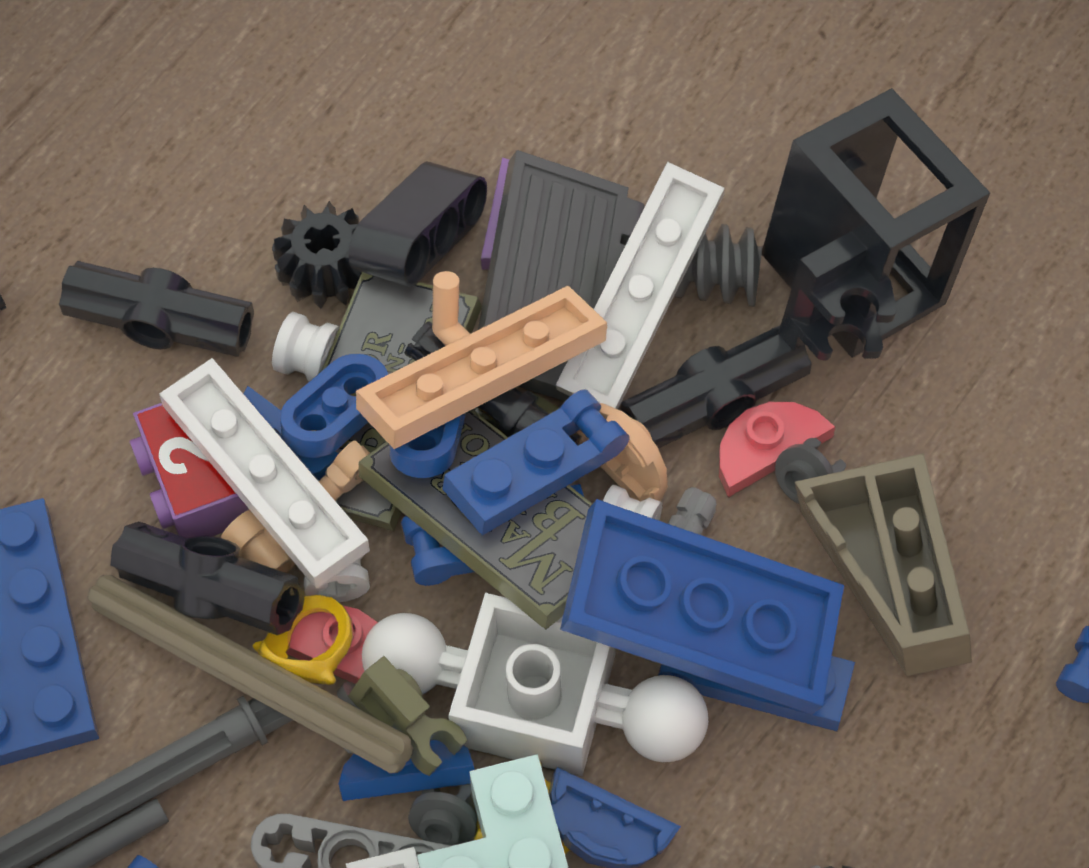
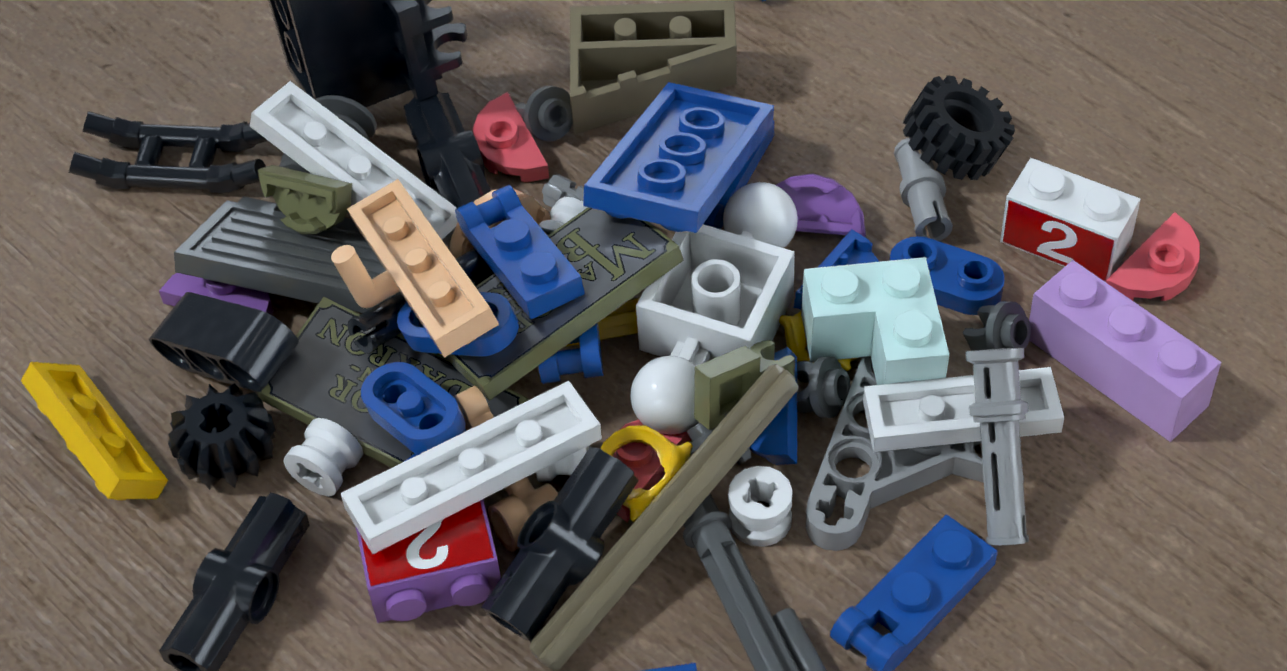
camera: 80 degrees left, 10 degrees down
(290, 783) = (753, 521): none -> white wheel
(321, 146) = (94, 431): none -> yellow plate
(602, 256) = (306, 199): none -> olive plate
(709, 788) = (824, 205): none -> medium lavender plate
(711, 102) = (152, 138): none -> black piece

